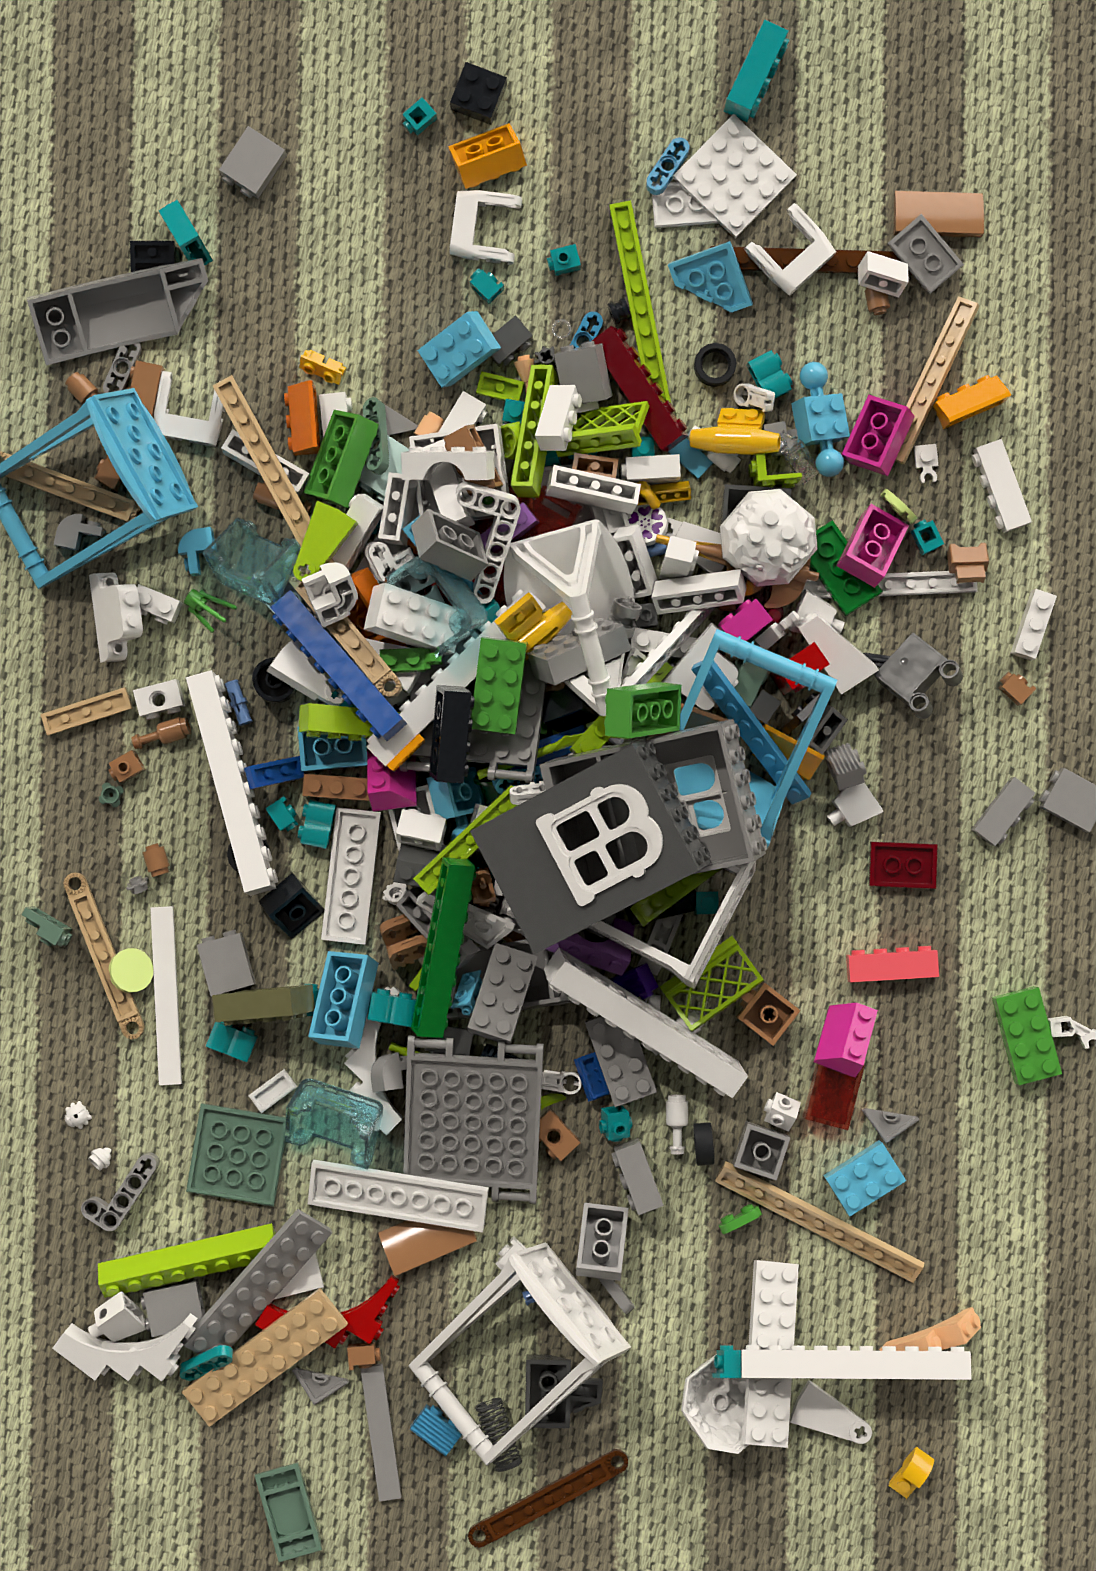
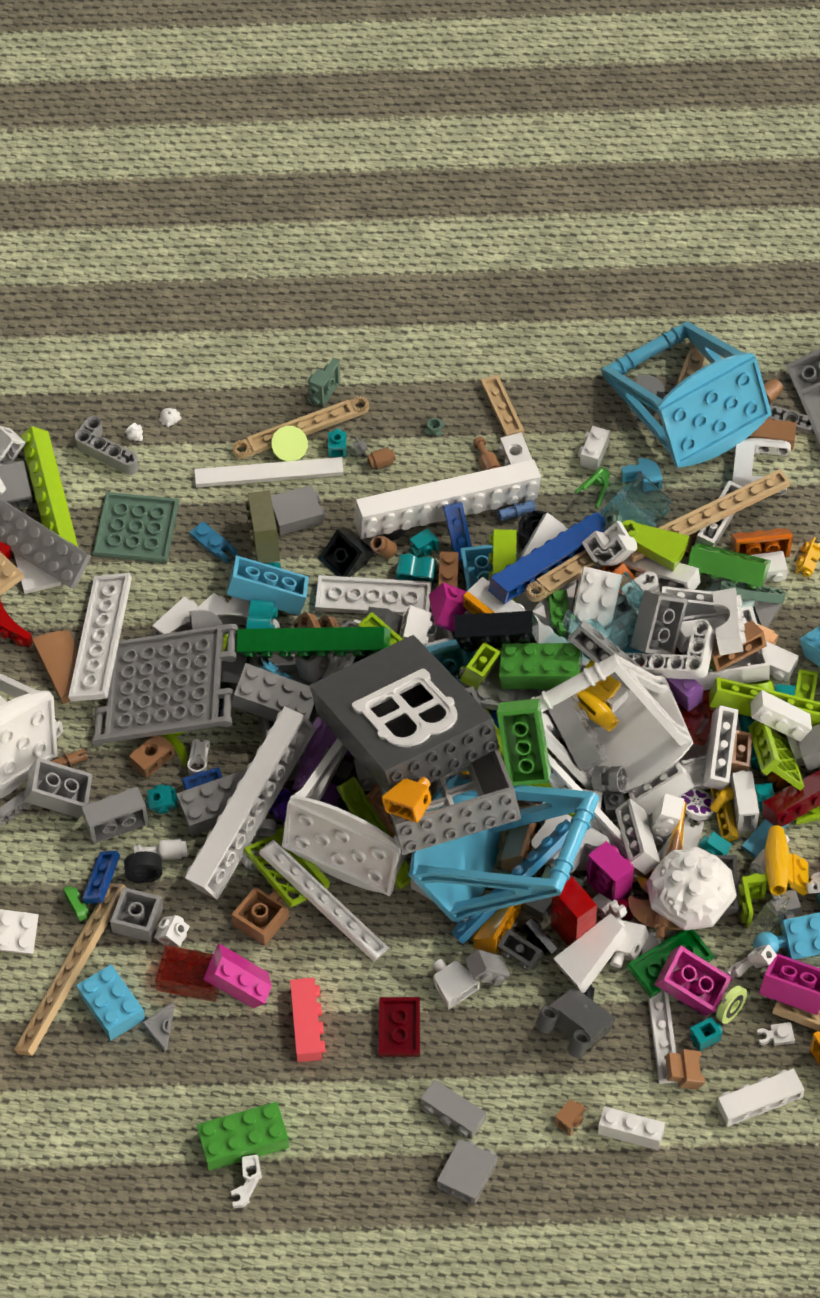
camera: 95 degrees right, 30 degrees down
(115, 614) = (581, 417): white brick -> none
(126, 767) = (458, 434): medium nougat brick -> none
(138, 908) = (337, 443): none -> teal brick
(232, 1040) = (231, 517): teal brick -> none
(262, 1064) = (213, 541): none -> dark azure hinge
(272, 1091) = (189, 549): white tile -> none
(287, 861) = (383, 547): none -> medium nougat brick
(290, 583) = (611, 518): none -> sand green plate
(336, 1117) = (173, 579): clear light blue windscreen -> none
(496, 755) = (480, 666): none -> lime brick
(498, 608) = (597, 646): none -> light grey brick
(555, 1230) = (72, 758): none -> medium nougat axle
(705, 508) = (714, 844): none -> teal brick
(710, 1190) = (101, 877): none -> blue plate
(724, 843) = (408, 799): none -> light orange torso
(754, 944) = (323, 900): none -> white tile
(847, 472) = (758, 957): none -> white piece

